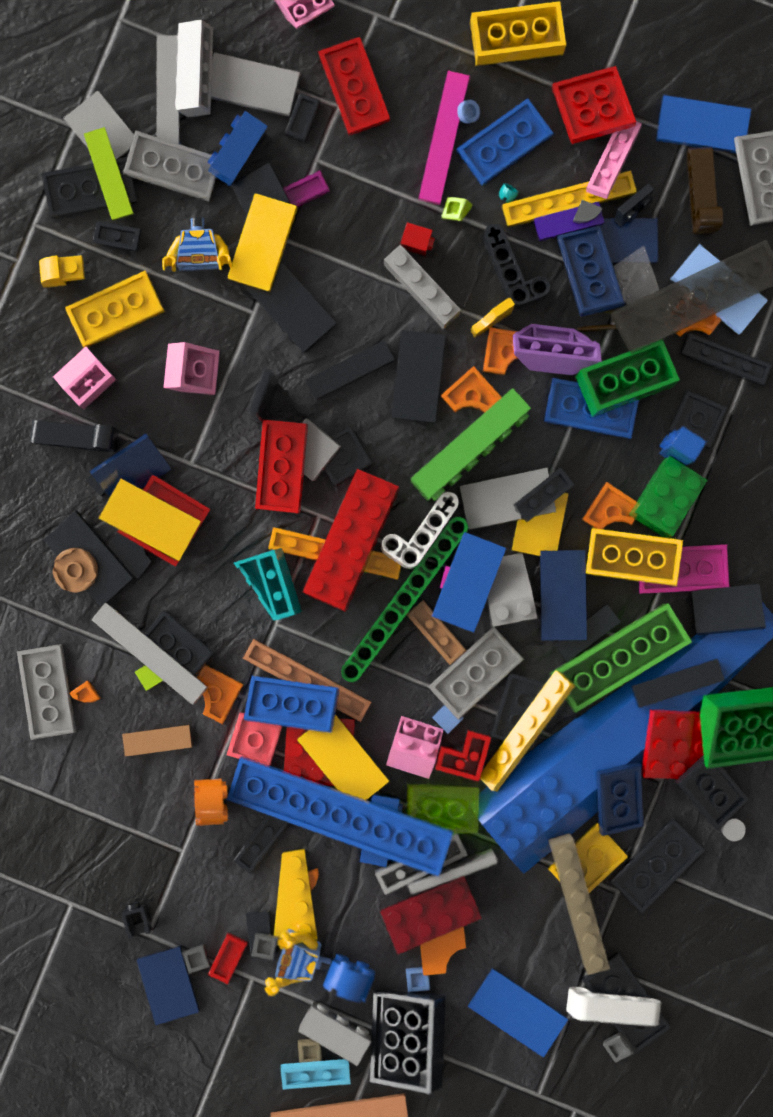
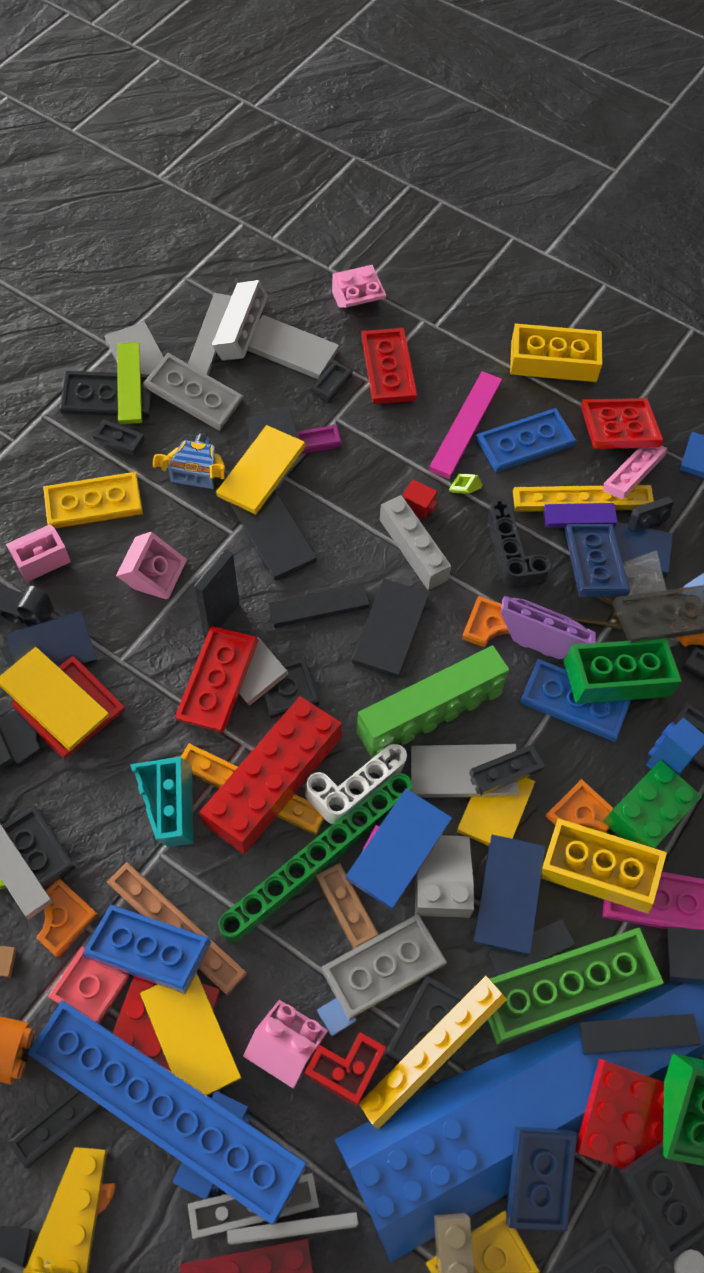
camera: 10 degrees right, 25 degrees down
(56, 270) = (48, 449): yellow brick -> none
(236, 147) = (260, 387): blue brick -> none
(445, 806) = (307, 1130): clear neon green slope -> none
(468, 111) = (495, 406): medium blue tile -> none
(471, 391) = (440, 652): orange tile -> none
(493, 317) = (486, 583): yellow tile -> none
(508, 192) = (521, 479): teal hinge -> none
(586, 212) = (600, 507): dark grey tile -> none

